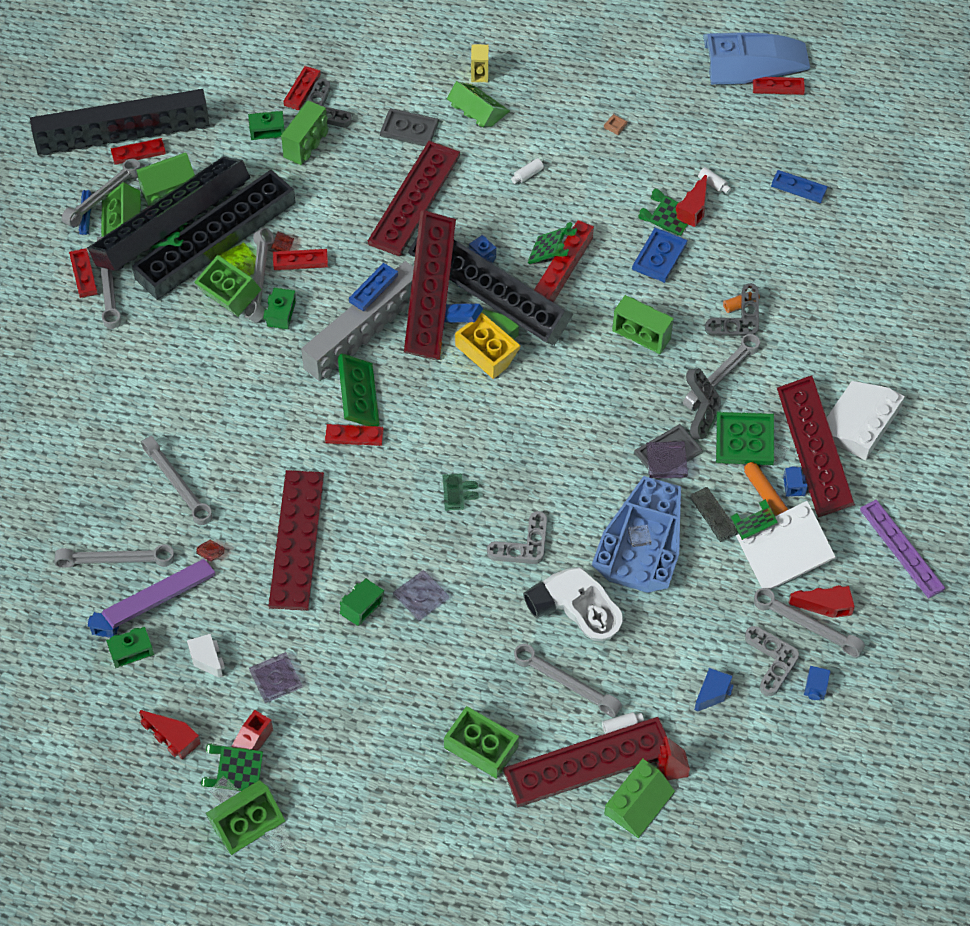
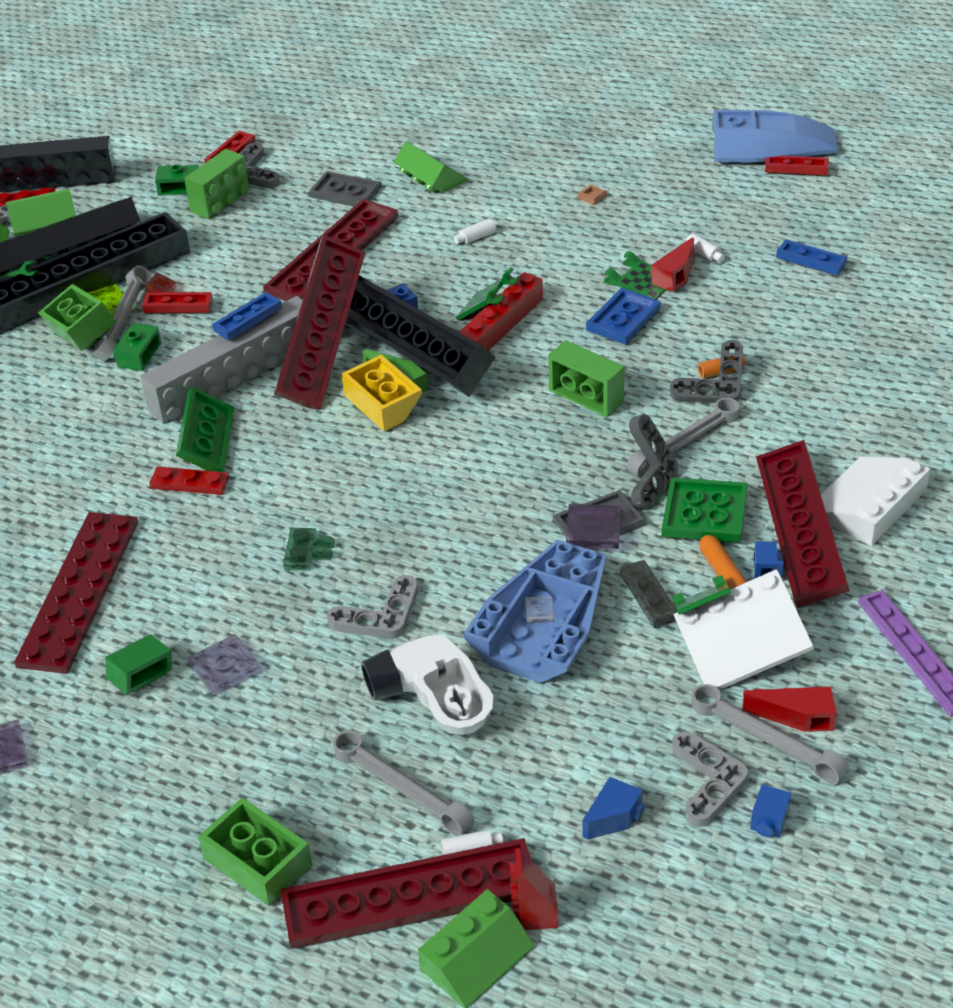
camera: 10 degrees right, 15 degrees down
(462, 312) = (356, 355): blue plate -> none
(479, 63) = (439, 130): light yellow brick -> none

